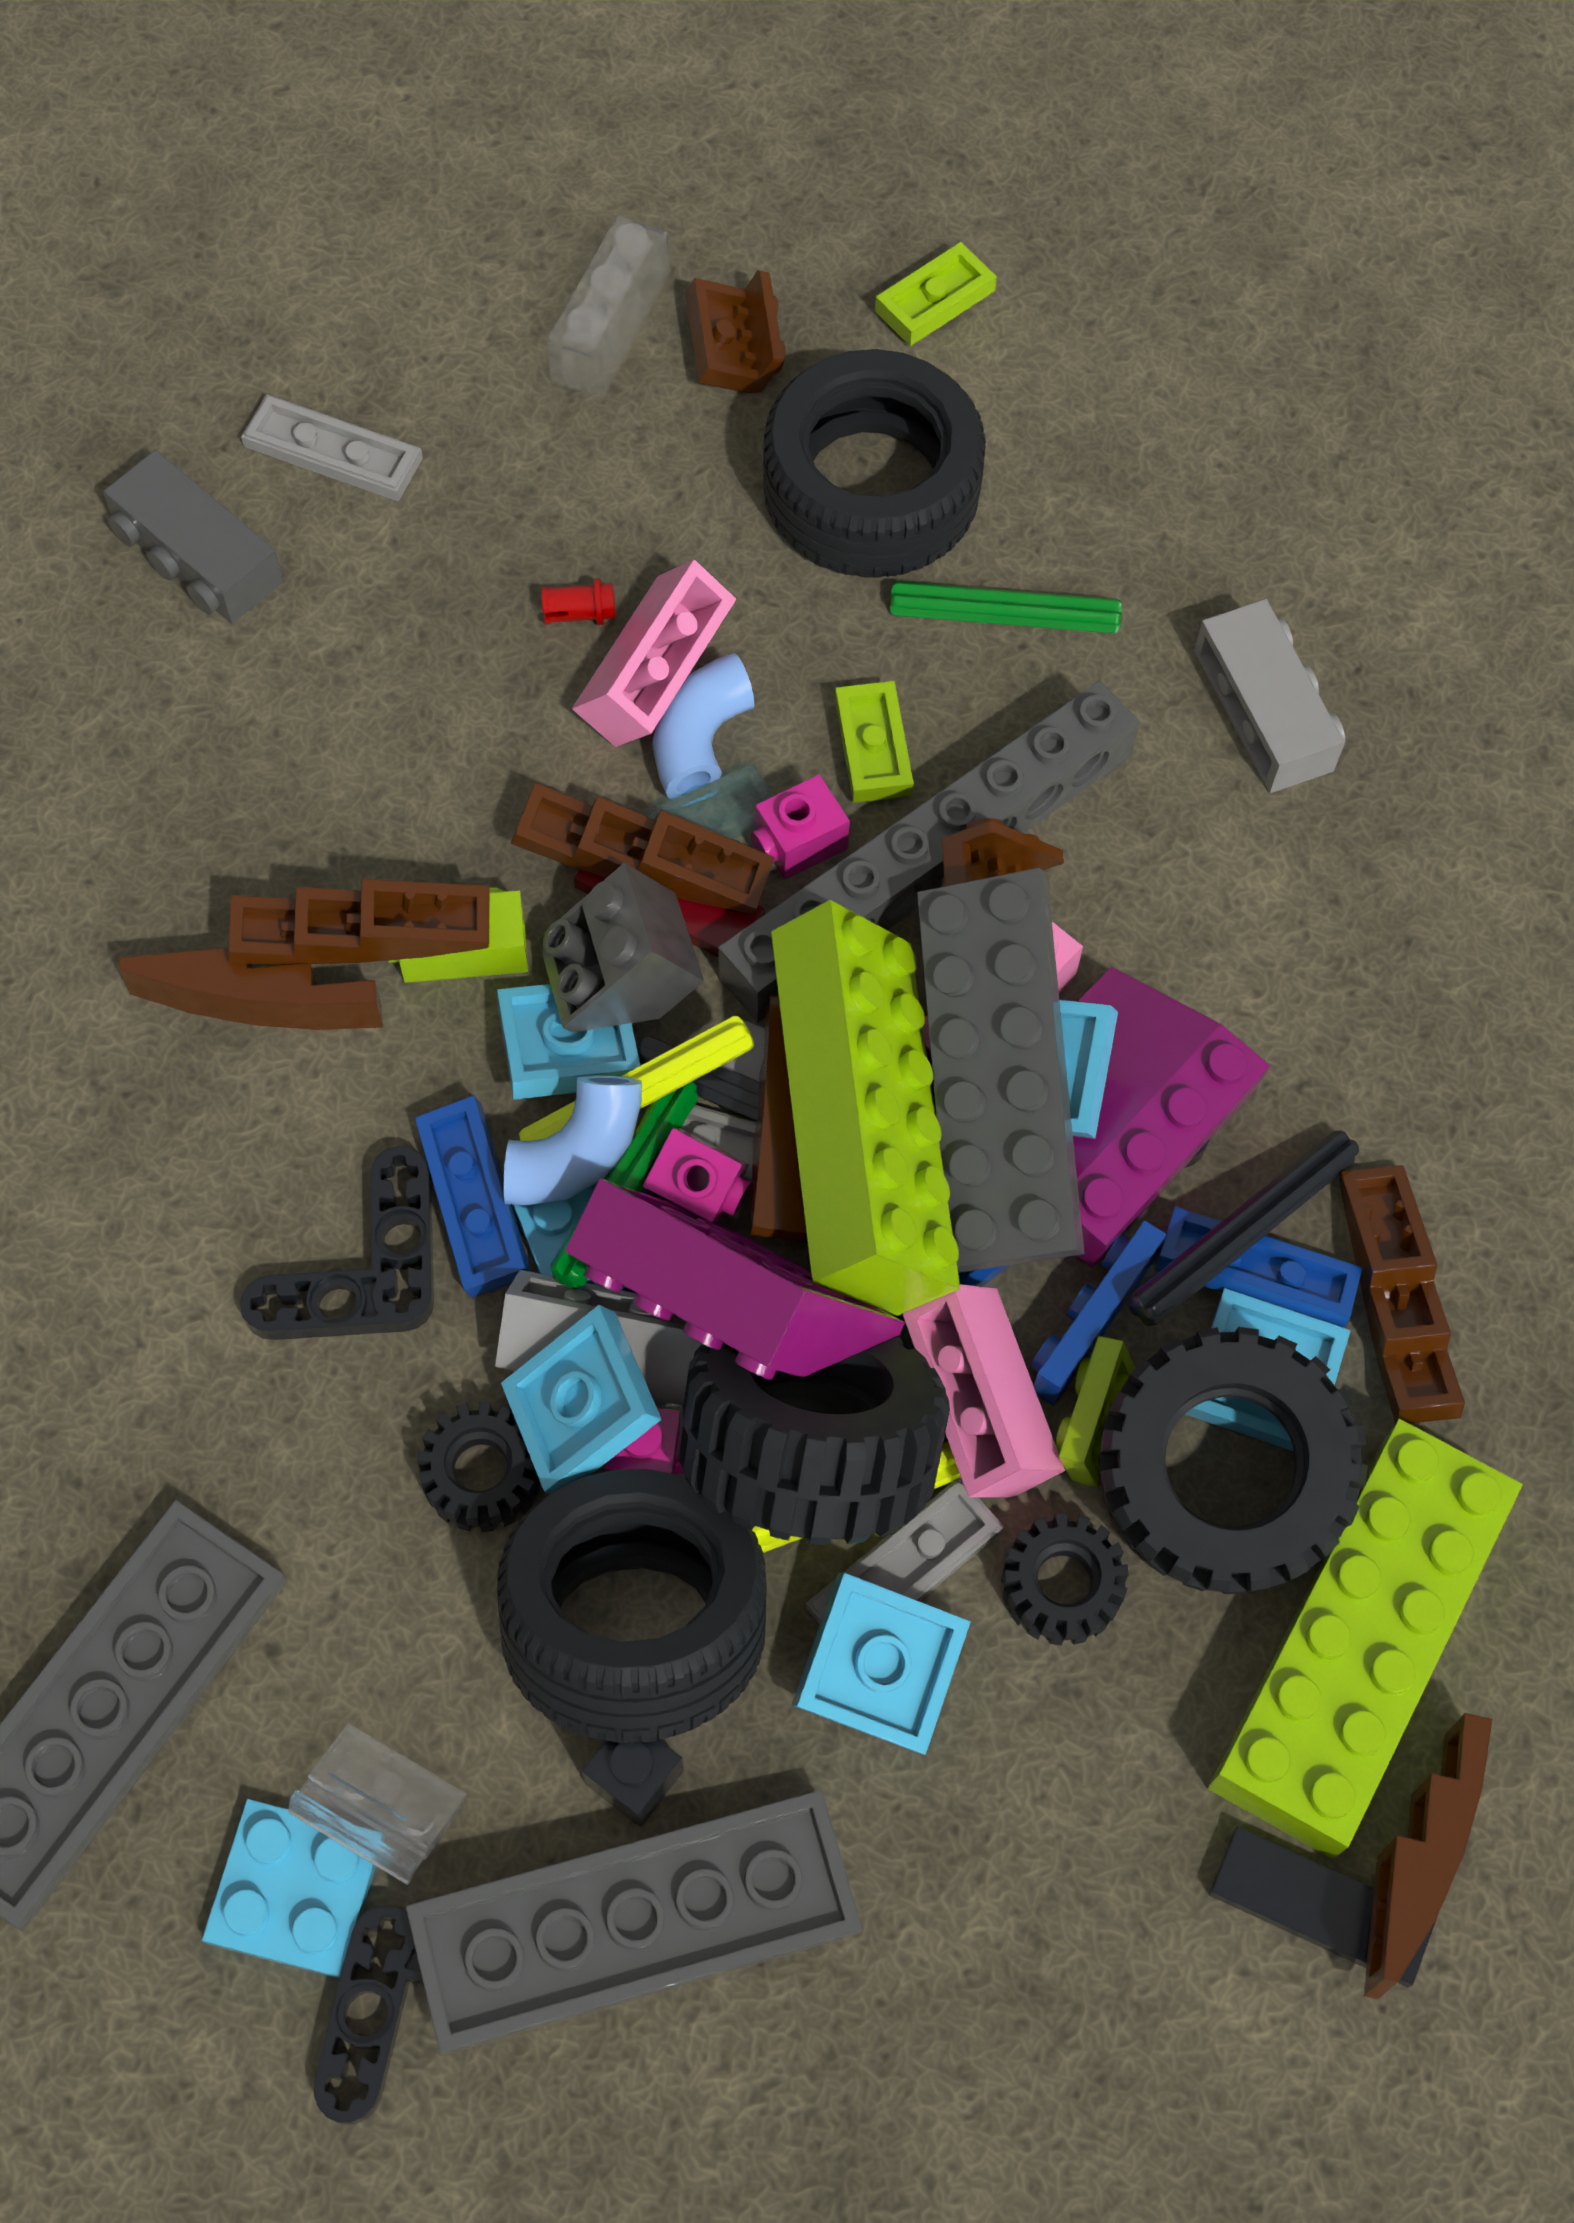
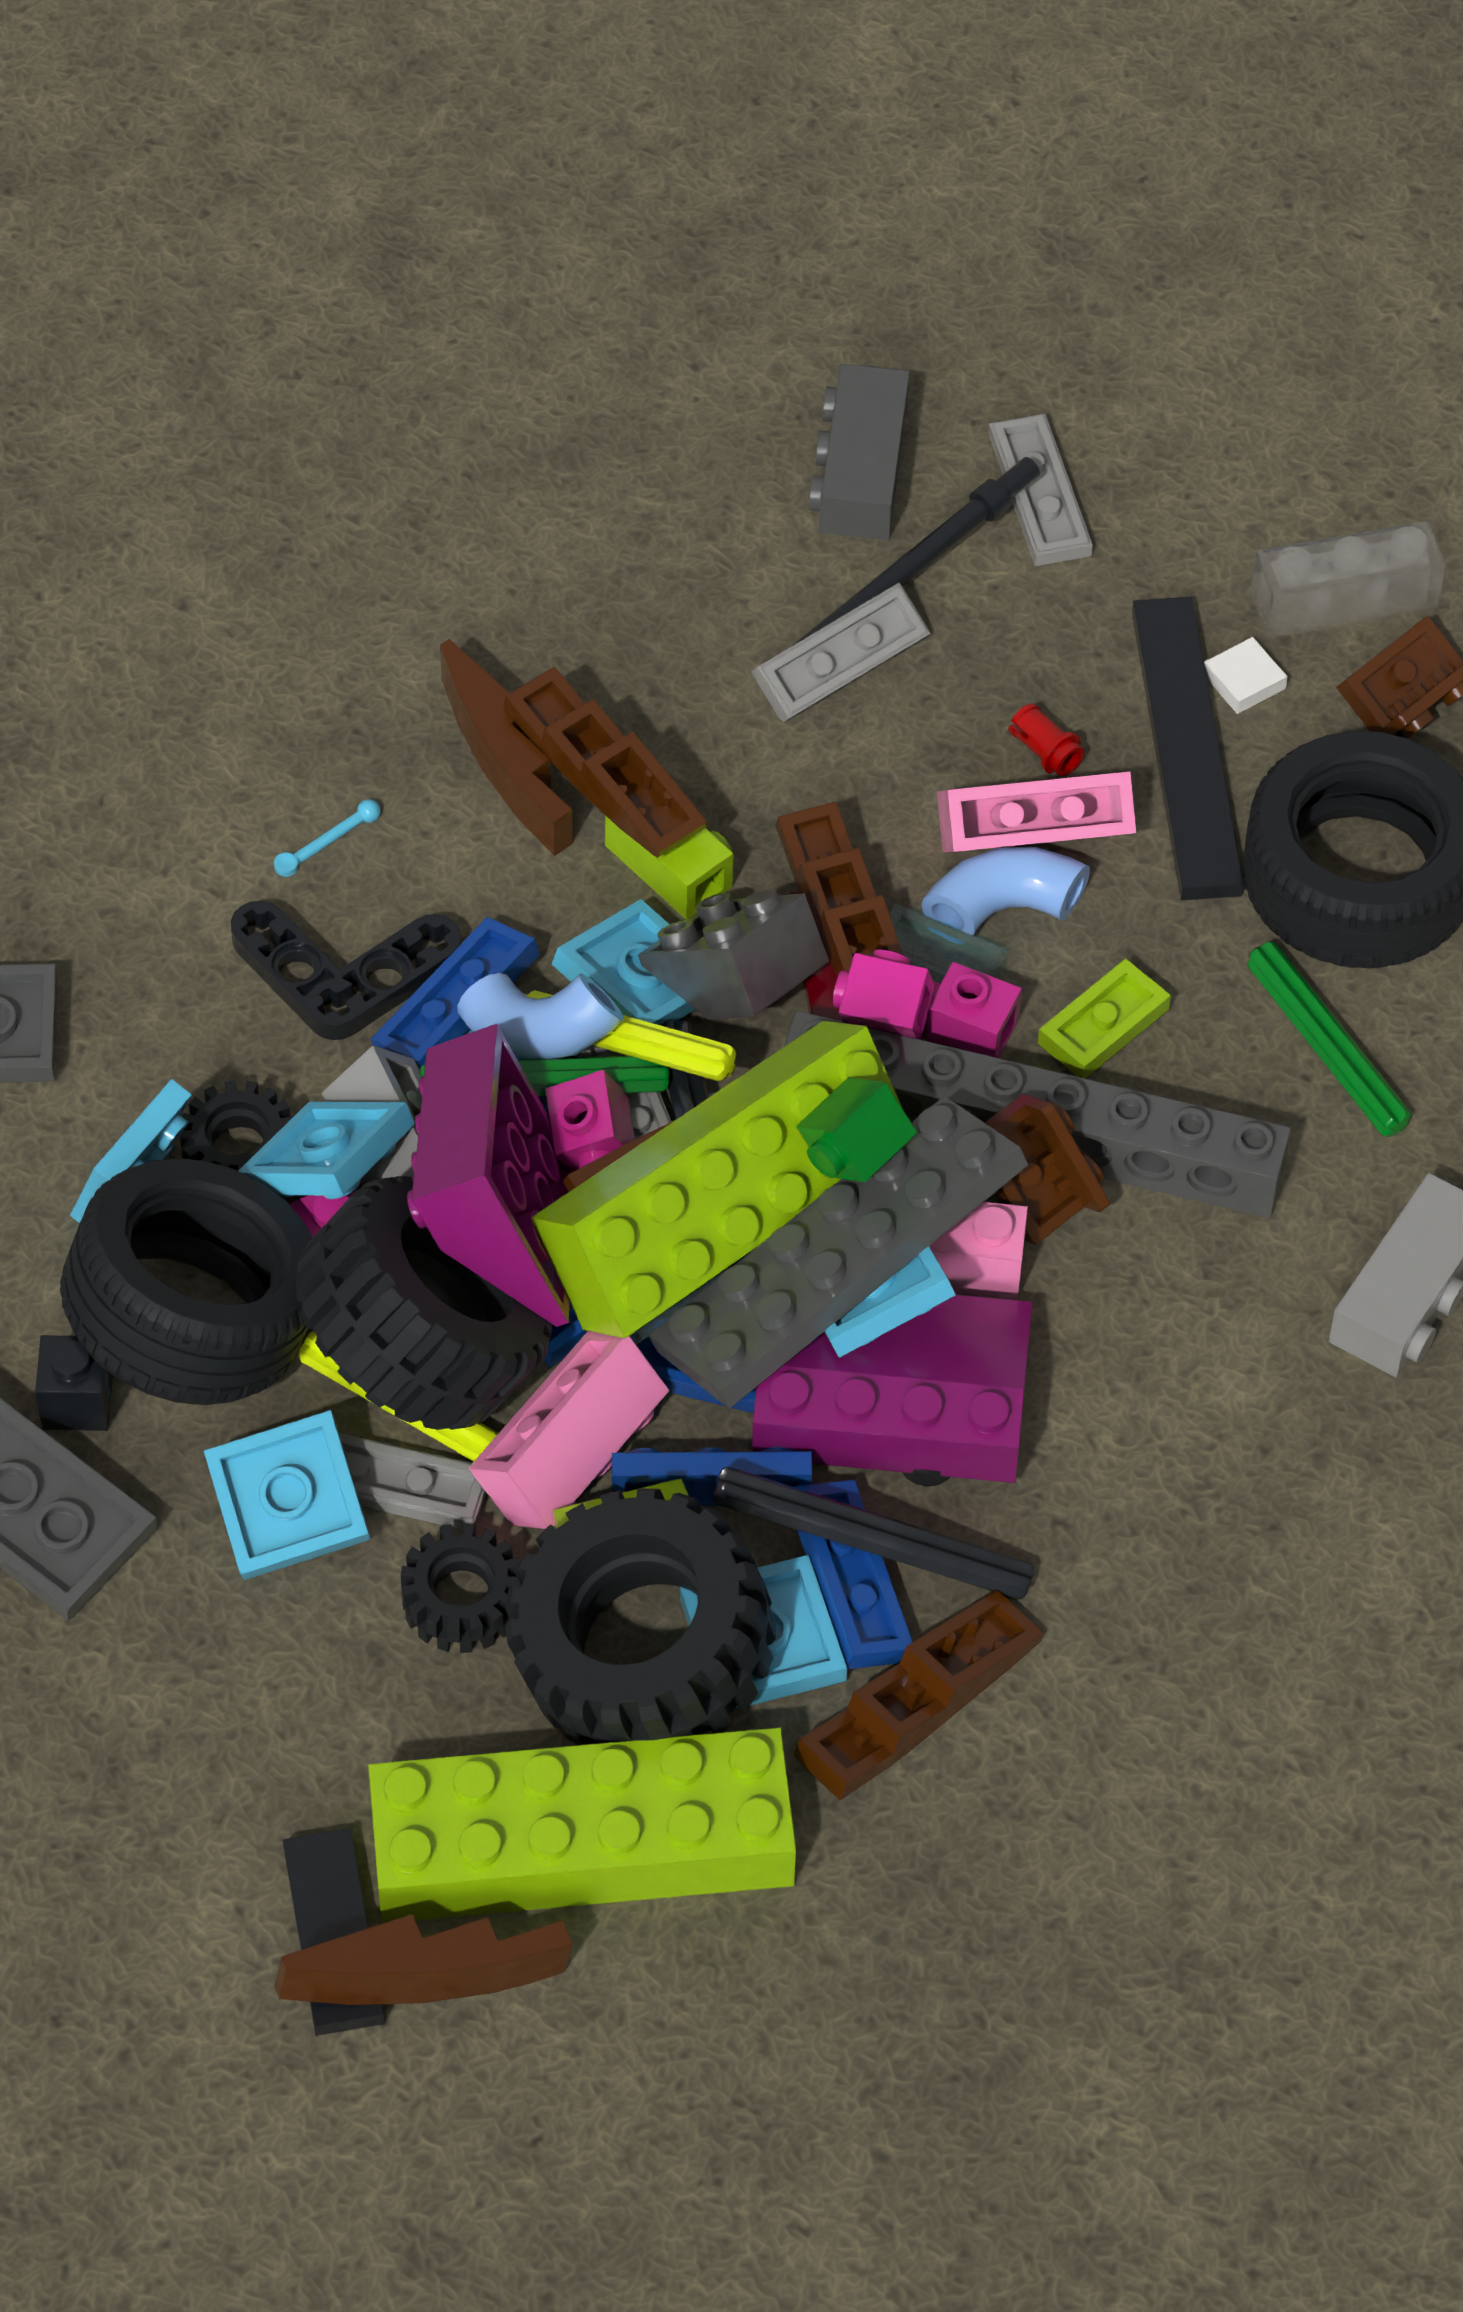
camera: 55 degrees right, 10 degrees down
(217, 1238) = (287, 863): none -> medium azure hinge
(322, 490) = (985, 503): none -> black bar
(371, 686) = (840, 652): none -> light grey tile
(448, 1578) = (144, 1141): none -> medium azure plate
(628, 434) = (1245, 675): none -> white tile
(662, 517) = (1187, 749): none -> black tile
(763, 872) = (885, 993): none -> dark pink brick
(918, 976) = (855, 1130): none -> green brick

